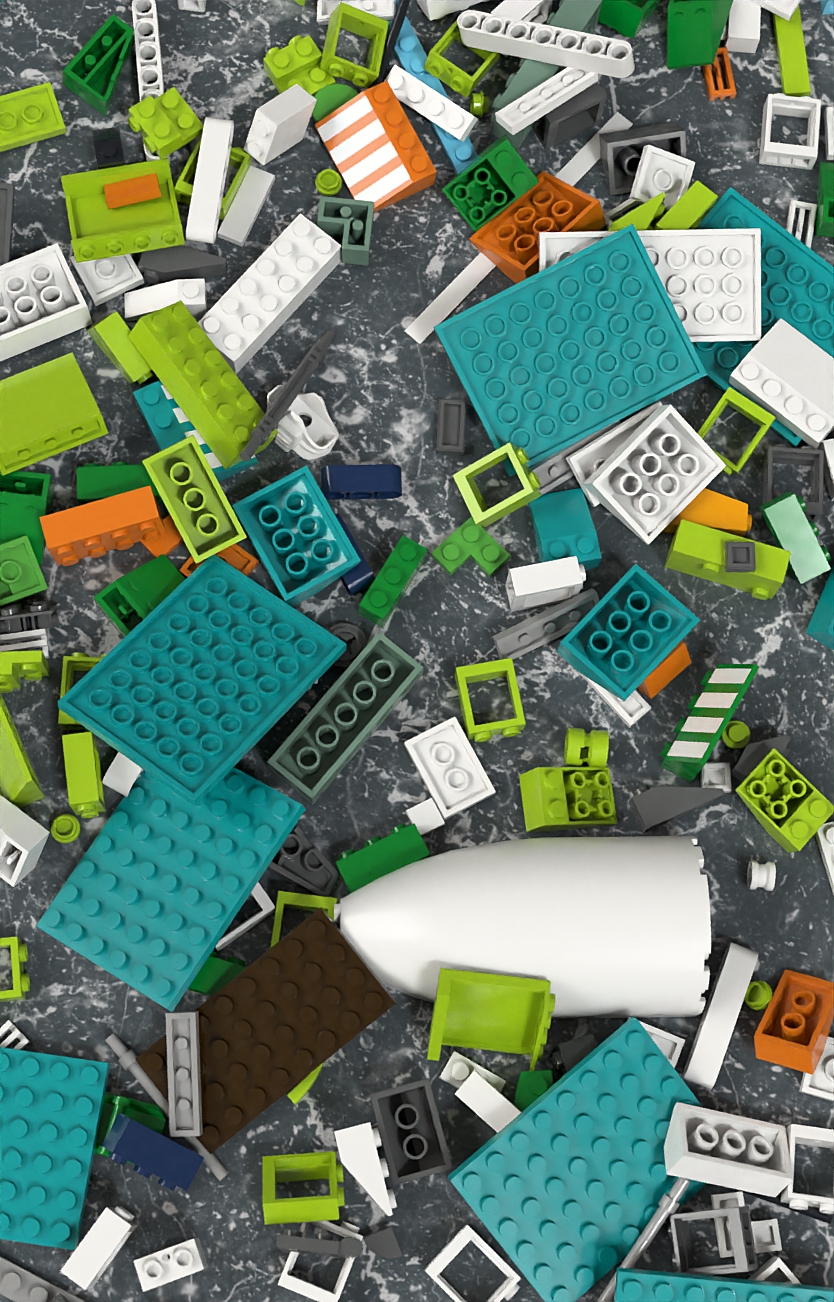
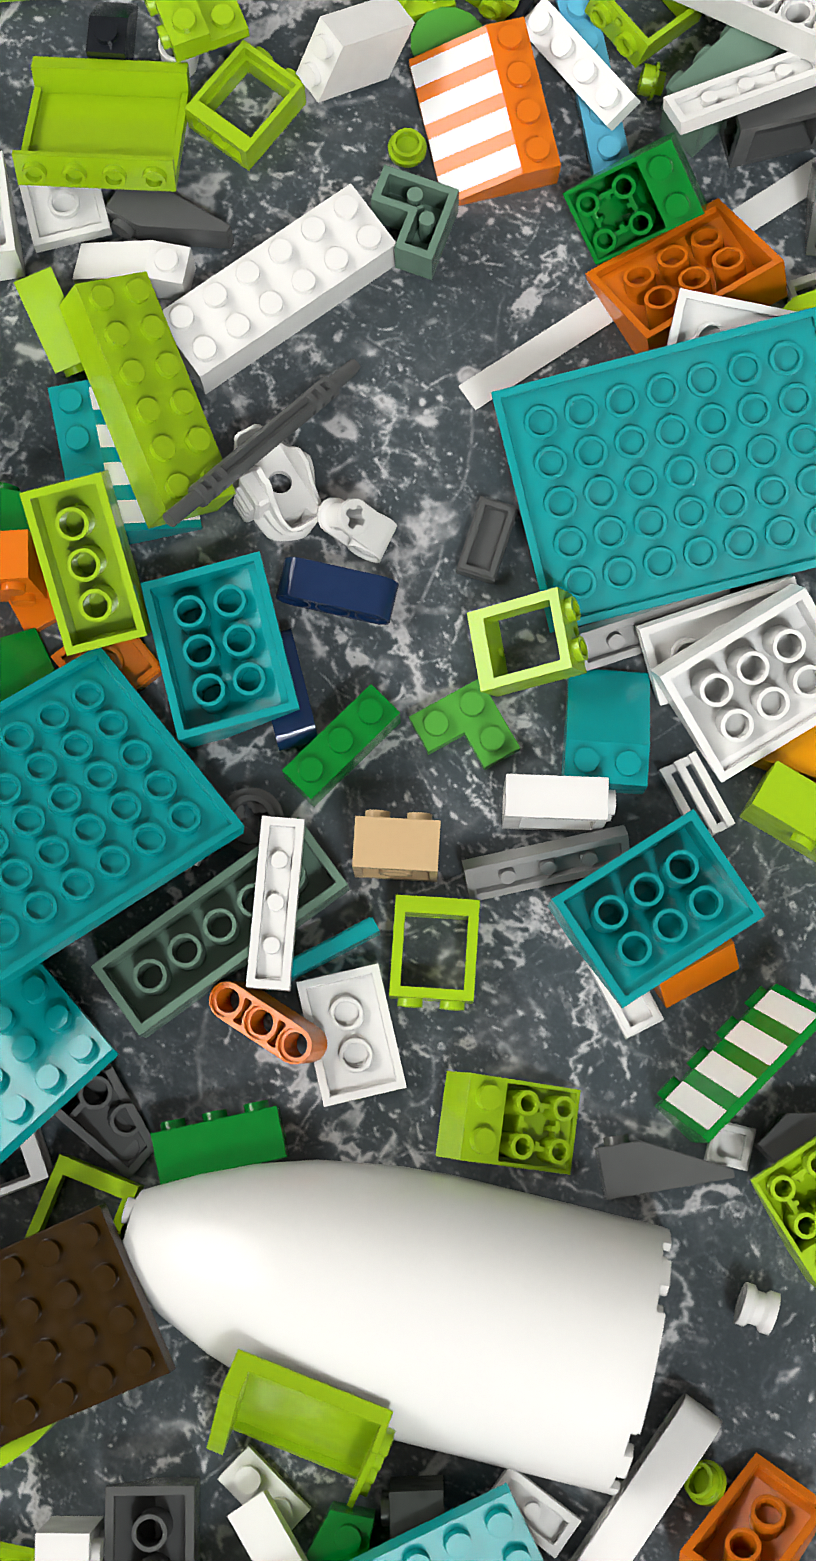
camera: 25 degrees right, 5 degrees up
(132, 191) = (126, 99): orange tile -> none
(209, 180) = (234, 107): white beam -> none
(246, 206) = (283, 156): white tile -> none
(364, 436) = (357, 526): none -> white piece
(380, 768) = (286, 1022): none -> orange beam
(381, 689) = (275, 903): none -> white plate
(415, 720) = (333, 947): none -> teal tile
(425, 817) = (298, 1096): white tile -> none
(448, 637) = (396, 846): none -> tan brick
(595, 752) = (553, 1056): lime wheel -> none
(638, 550) = (708, 786): none -> white tile
(736, 735) = (778, 1092): lime plate -> none

